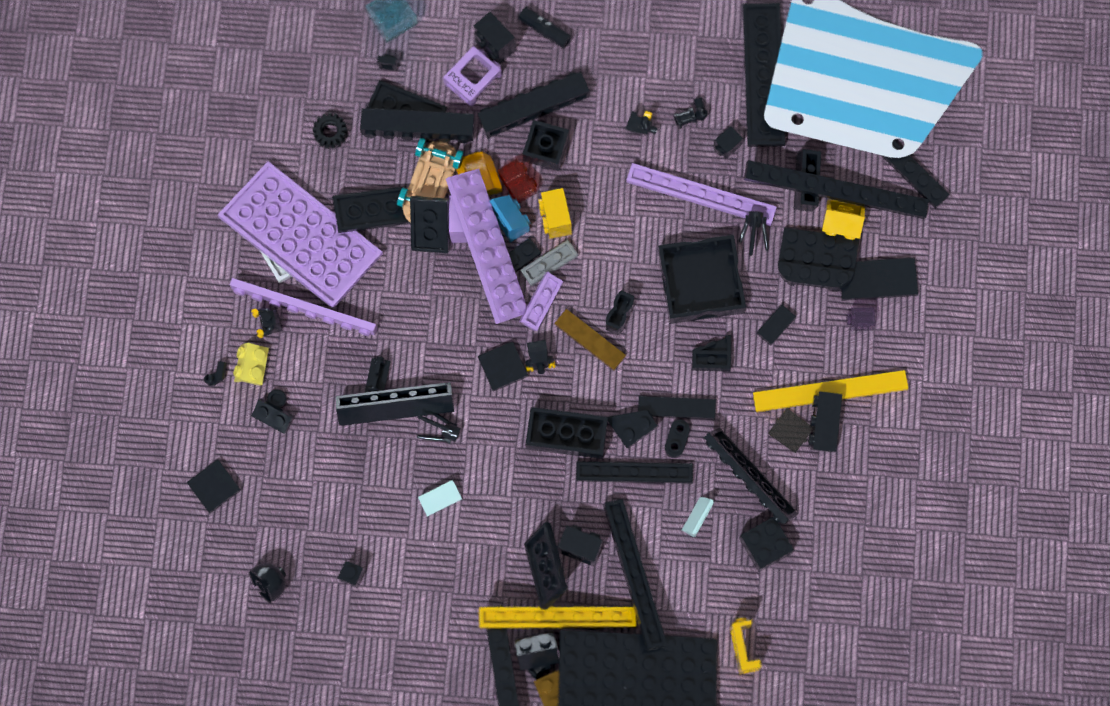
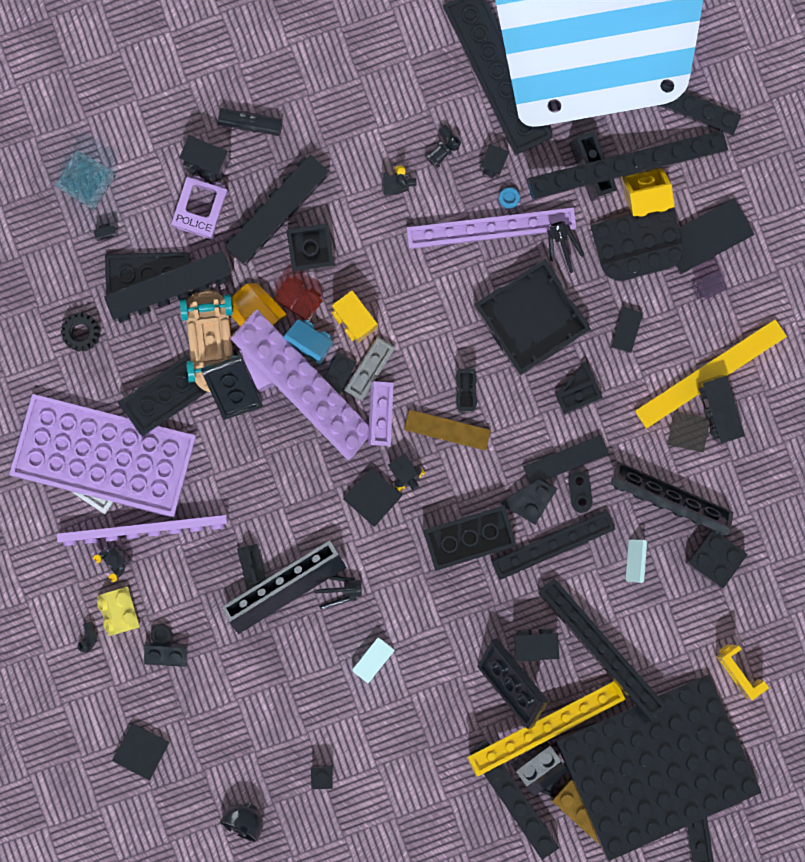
camera: 30 degrees left, 10 degrees up
(727, 177) = (509, 198): none -> dark azure tile

